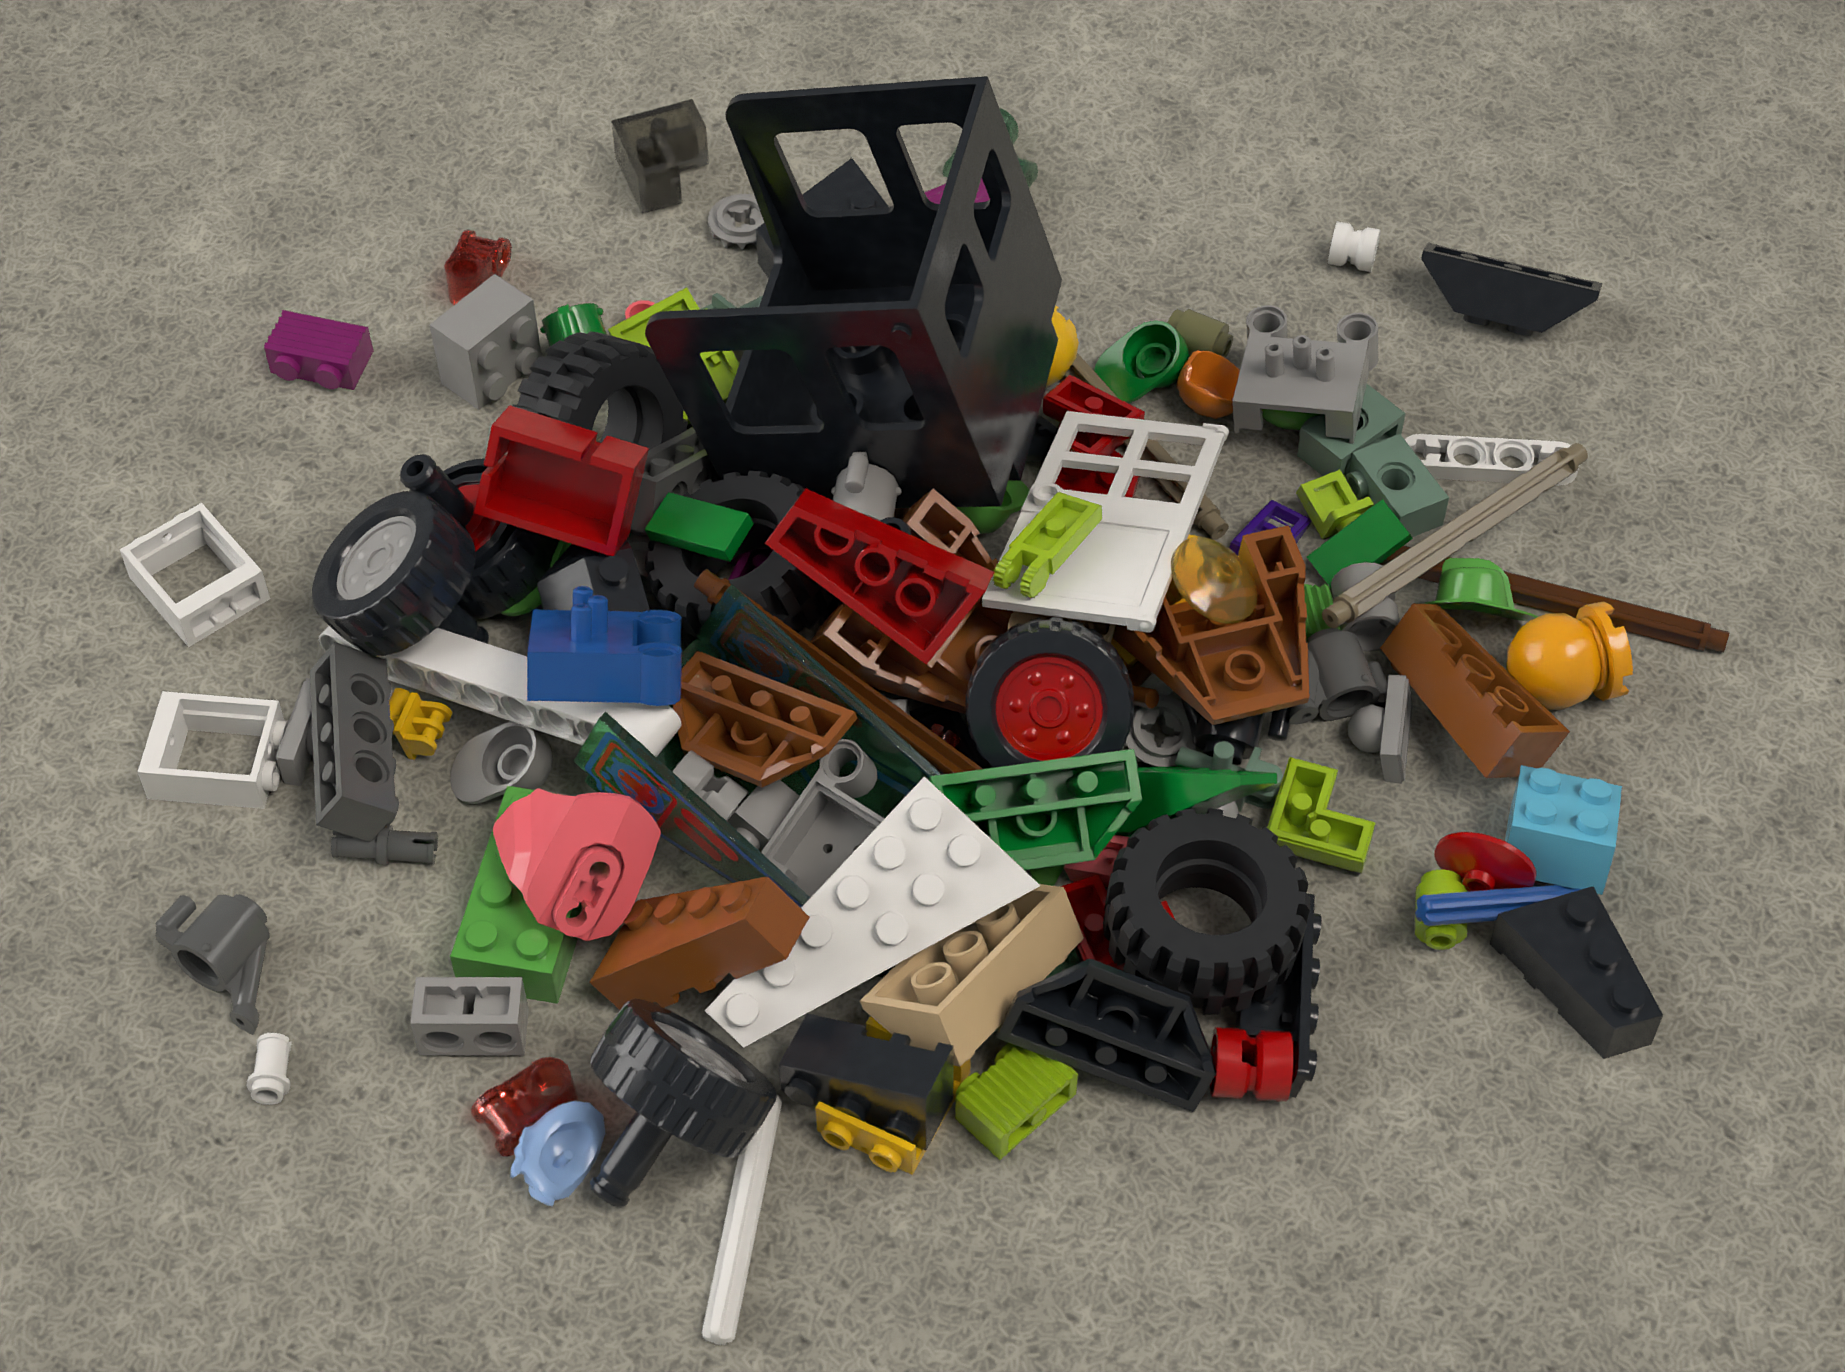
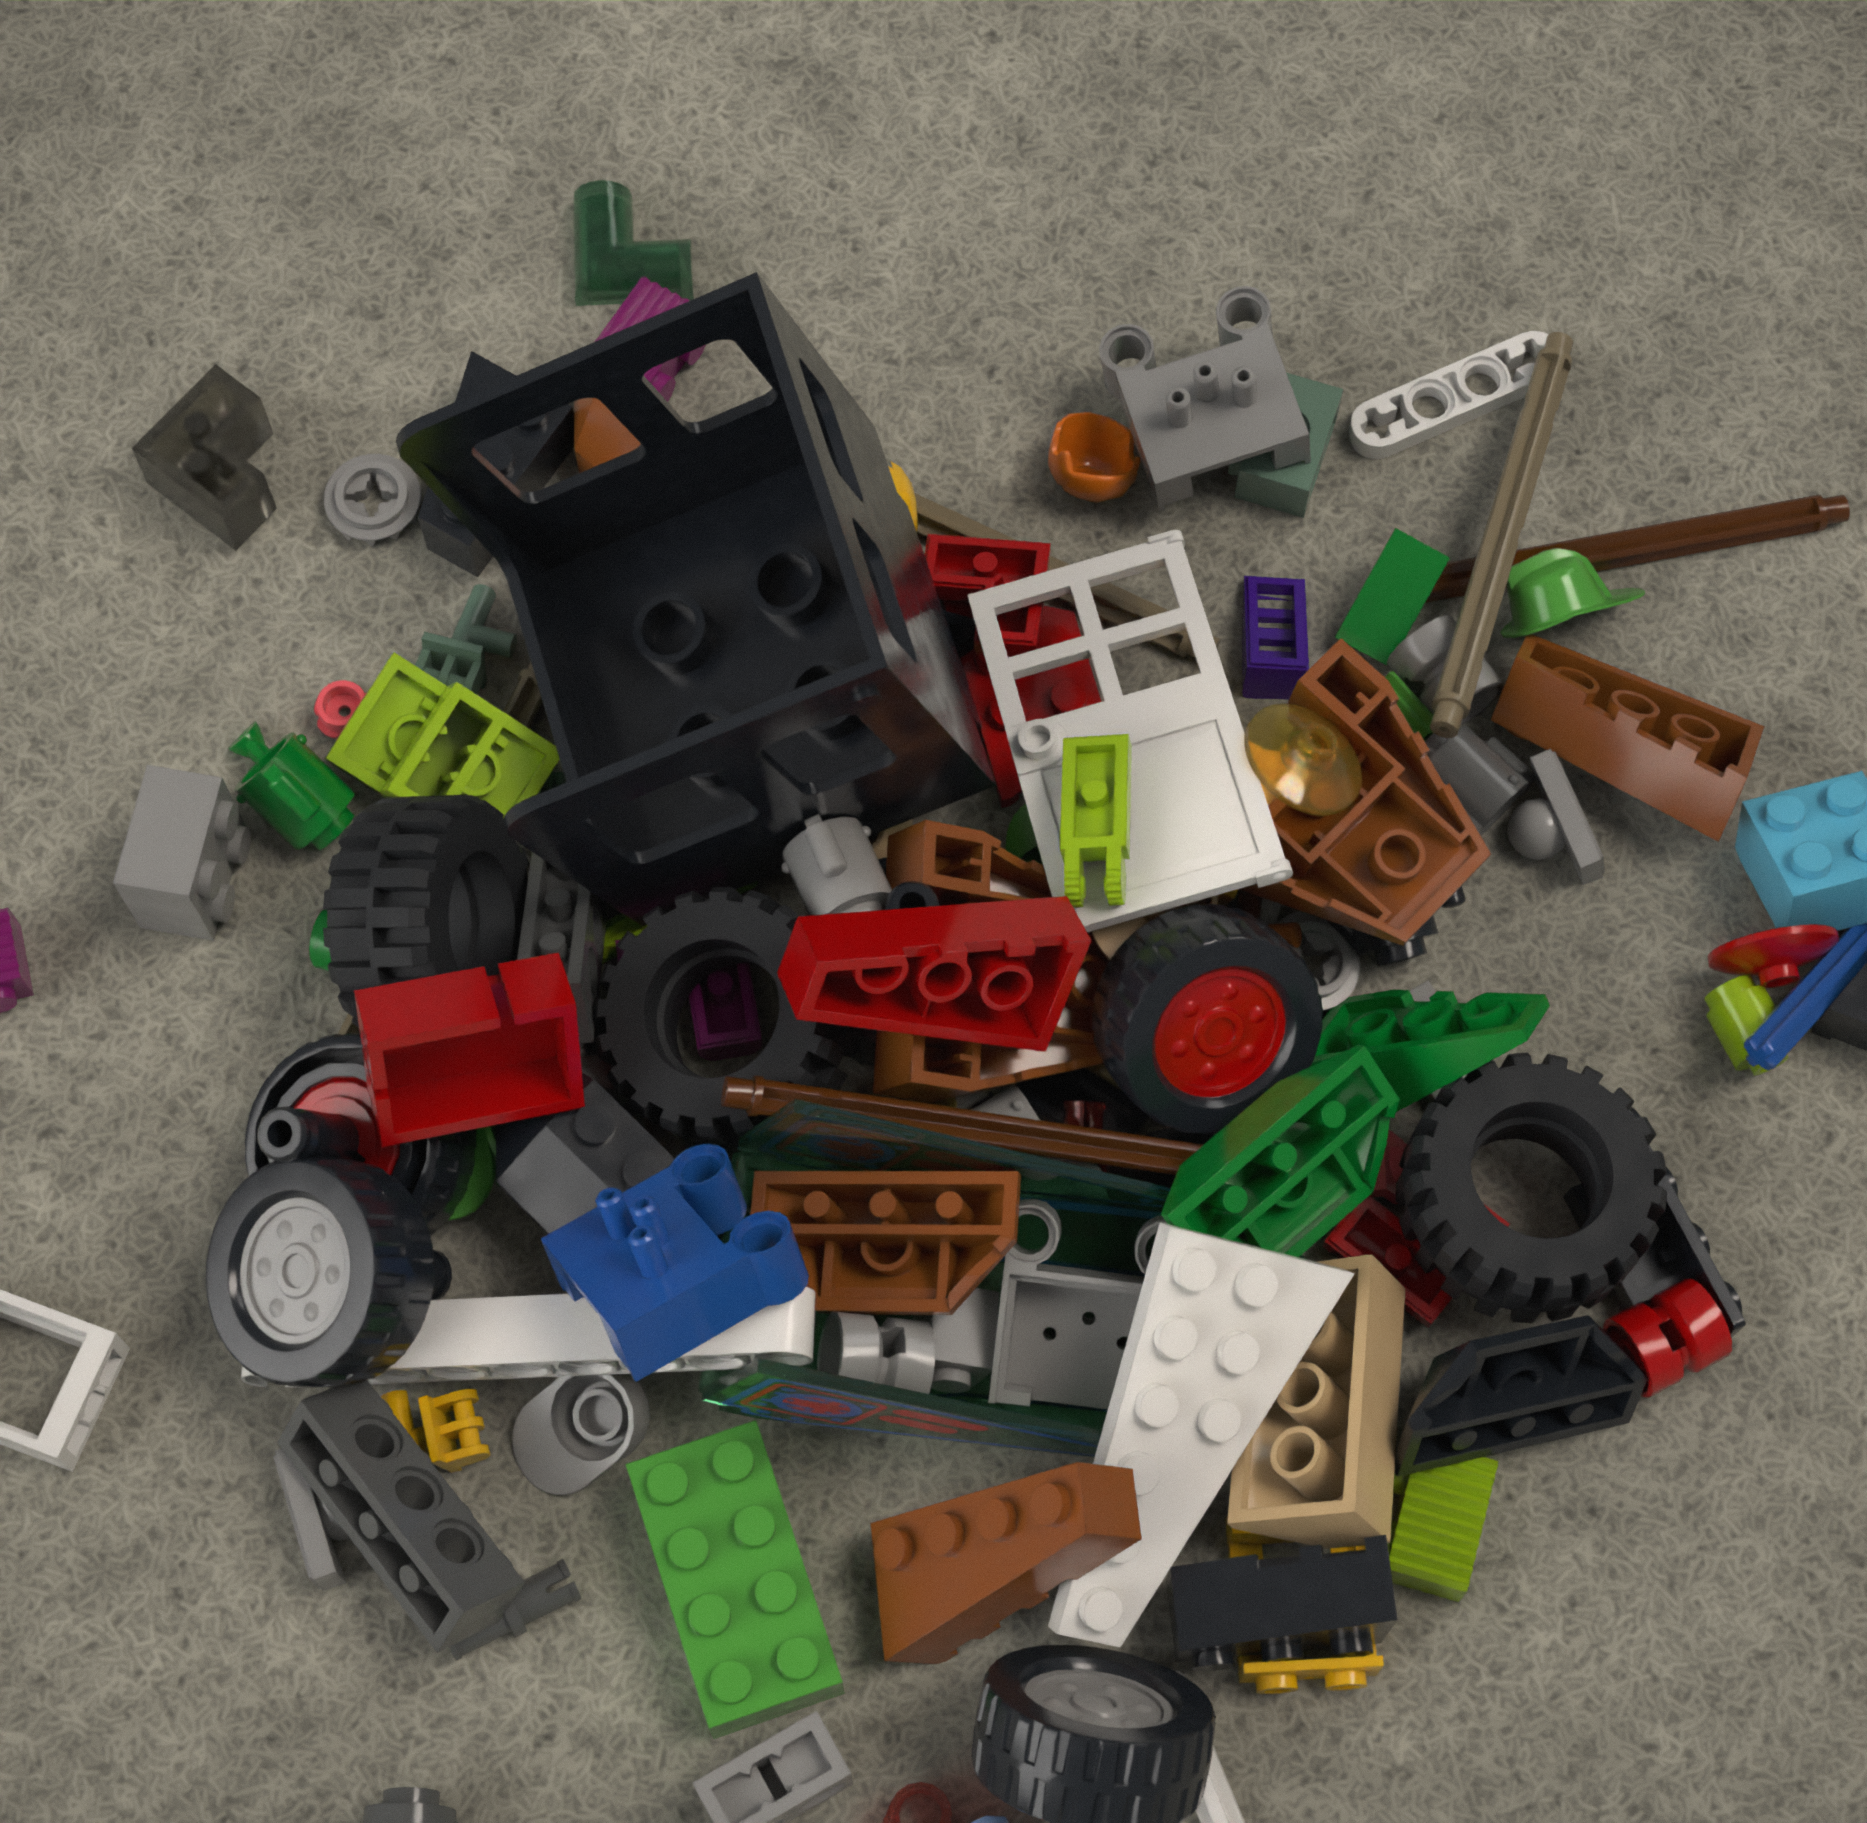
camera: 30 degrees left, 15 degrees up
(218, 714) = (147, 1627): white window -> none
(474, 262) = (78, 733): clear red piece -> none
(551, 854) = (789, 1543): coral piece -> none
(699, 526) = (663, 1011): green tile -> none
(1143, 360) = (991, 464): green cap -> none
(1202, 332) = (1033, 394): olive brick -> none
(1223, 759) = (1452, 969): sand green arm -> none
(1309, 828) = (1579, 994): lime brick -> none
(1331, 503) = (1326, 551): lime bracket -> none
(1354, 246) = (1144, 172): white wheel -> none
(1398, 476) = (1371, 464): sand green brick -> none
(1506, 291) = (1359, 152): black wedge -> none
(1571, 657) = (1712, 626): light orange tile -> none

